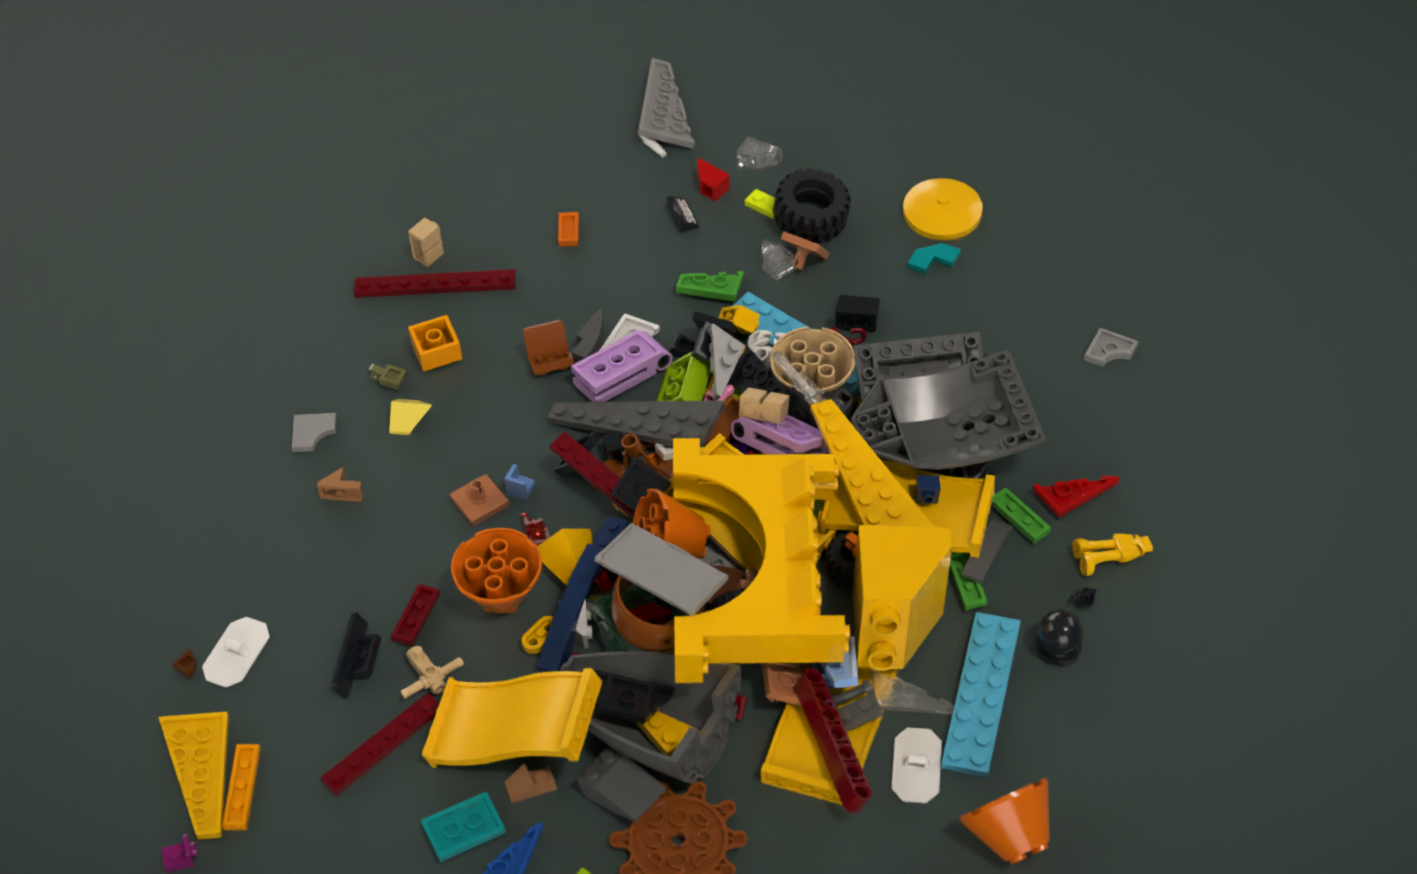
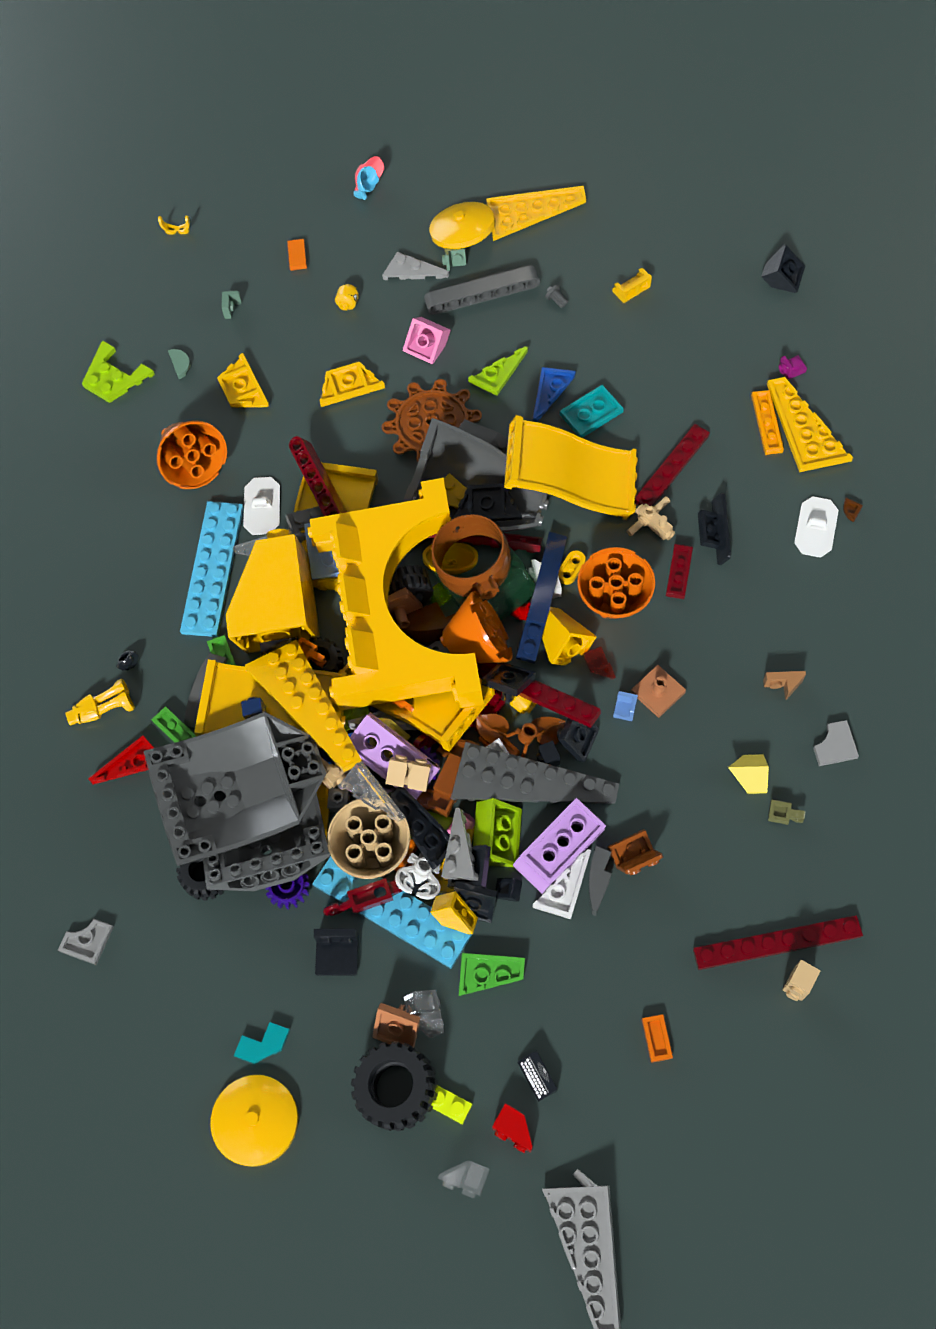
camera: 175 degrees right, 15 degrees up
(435, 343) = (750, 850): light orange brick -> none
(662, 569) = (468, 555): light grey door -> none
(1059, 638) = (147, 611): black tile -> none

